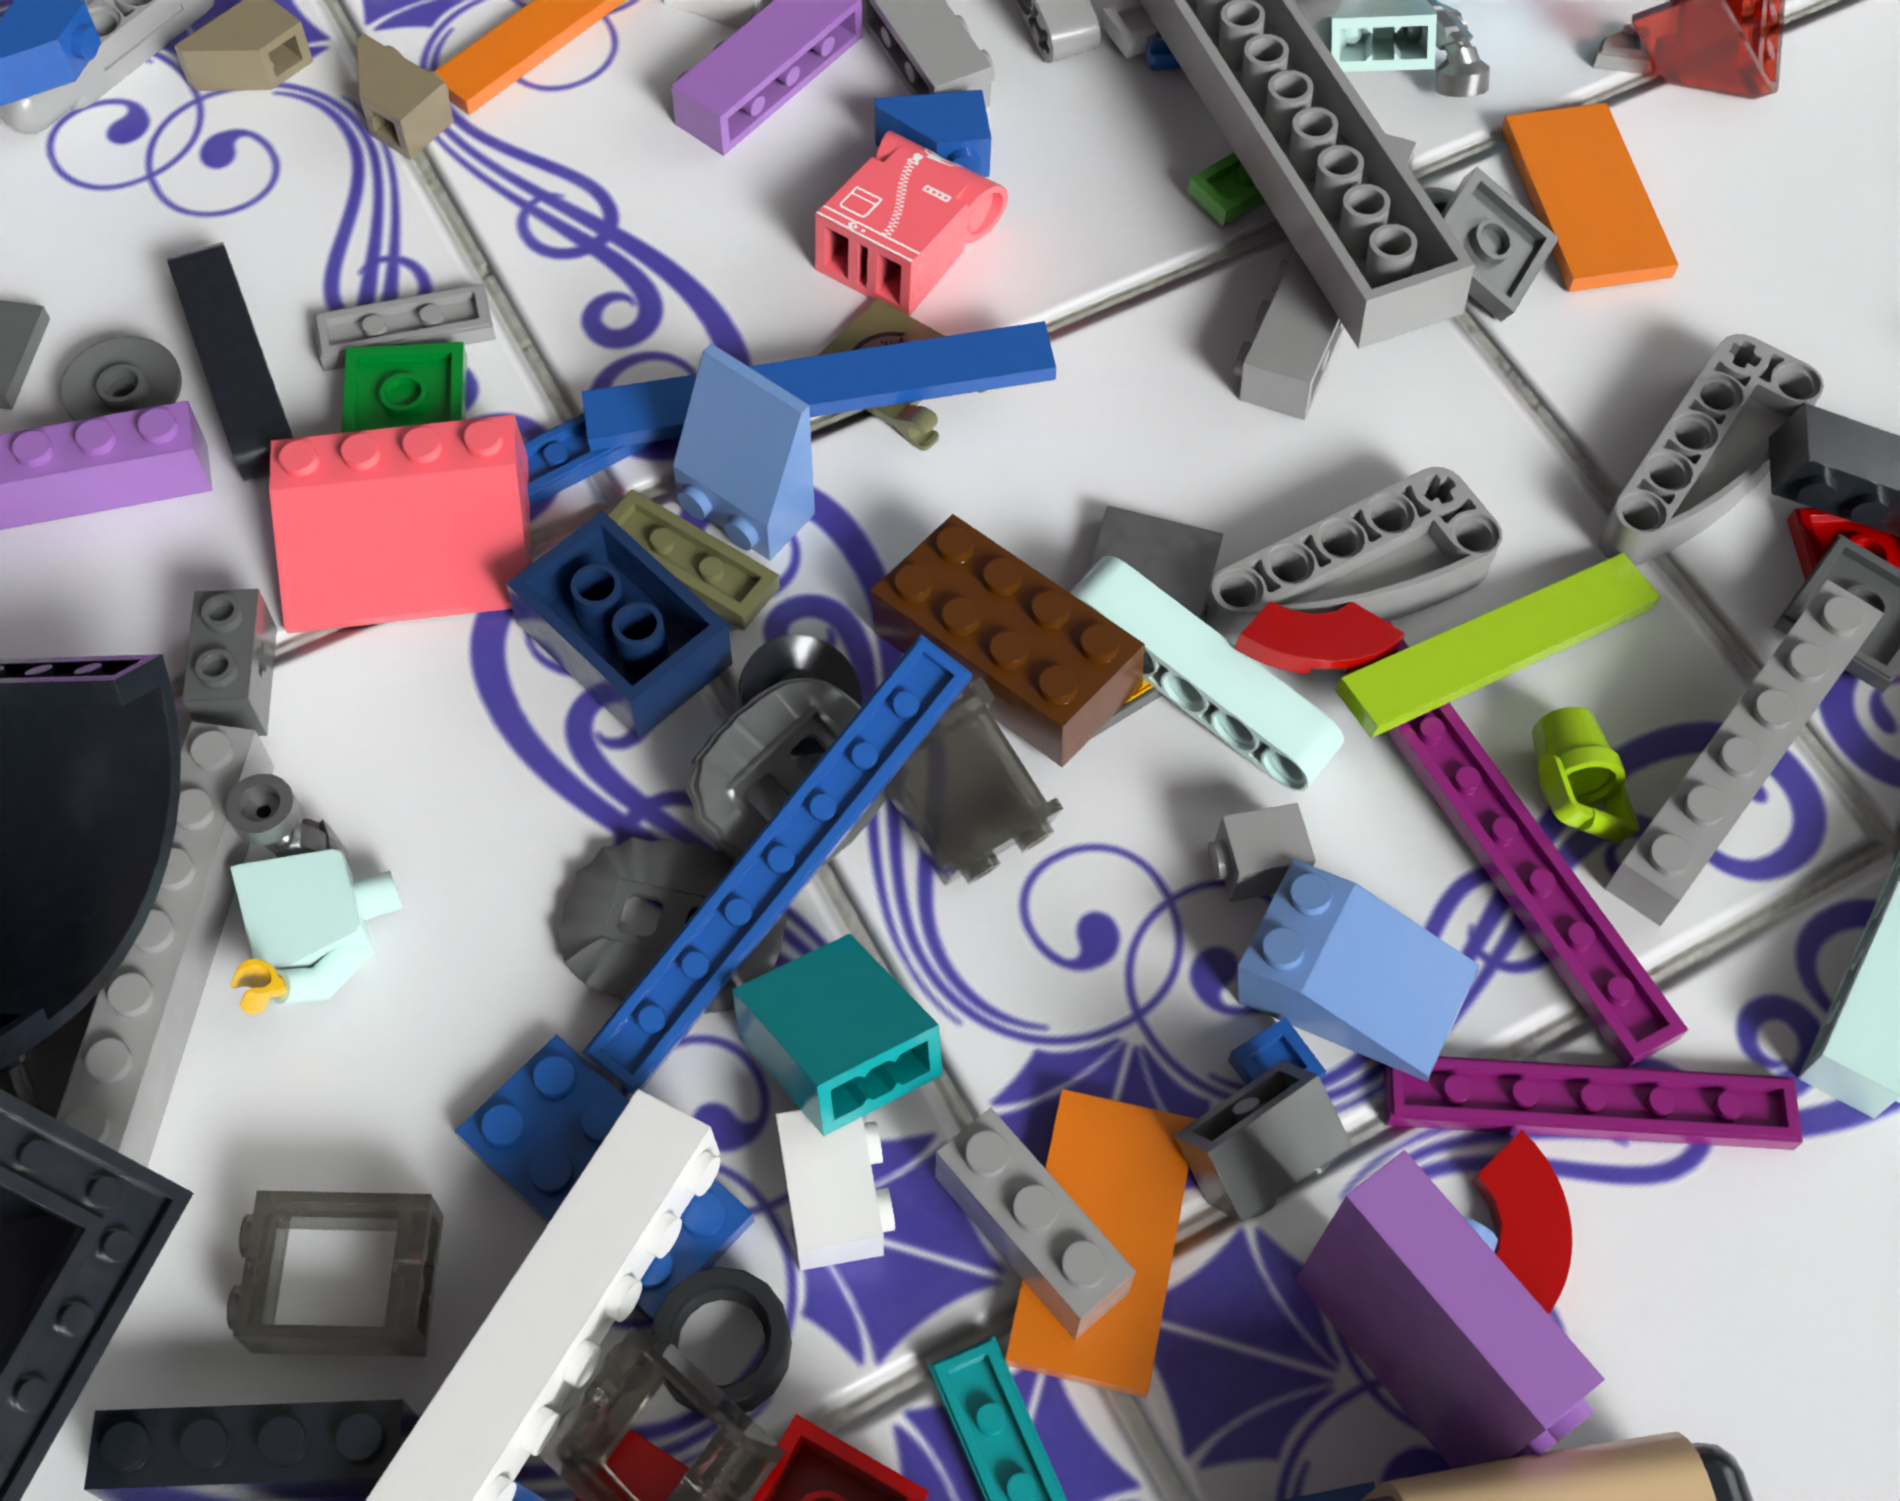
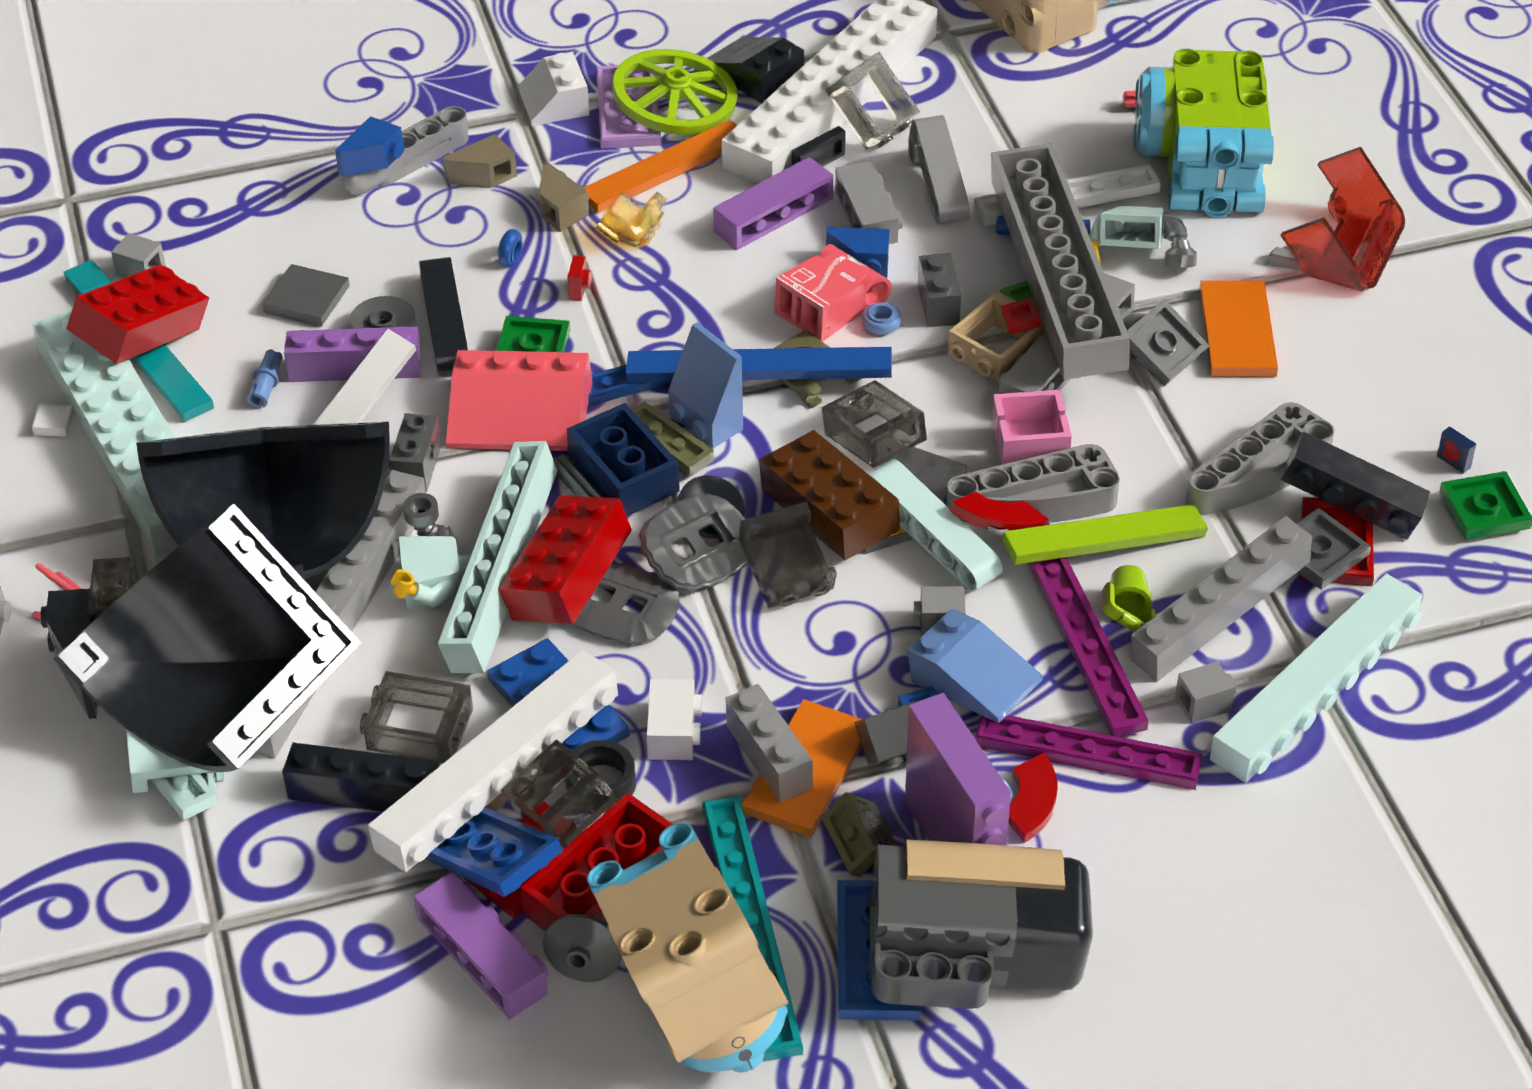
camera: 15 degrees right, 15 degrees down
(107, 546) = (368, 380): none -> white tile
(327, 207) = (510, 248): none -> blue piece
(421, 319) = (555, 307): light grey tile -> none
(428, 887) = (506, 531): none -> light aqua brick
(462, 250) = (578, 278): none -> red plate
(533, 132) = (631, 224): none -> clear yellow brick
(558, 865) = (565, 559): none -> red brick
(560, 691) = (574, 478): none -> dark grey axle
(777, 866) = (682, 569): blue tile -> none
(838, 1033) = (690, 649): teal brick -> none
(1002, 242) = (881, 326): none -> medium blue piece
(1084, 512) = (900, 433): none -> clear smoke window
(1089, 192) = (939, 290): none -> dark grey brick
(1206, 223) = (965, 349): none -> tan window
(1242, 1384) = (856, 831): none -> olive panel
(1252, 232) = (1021, 316): none -> red plate
(1312, 444) = (1029, 424): none -> bright pink piece
(1763, 946) = (1205, 692): none -> light grey brick

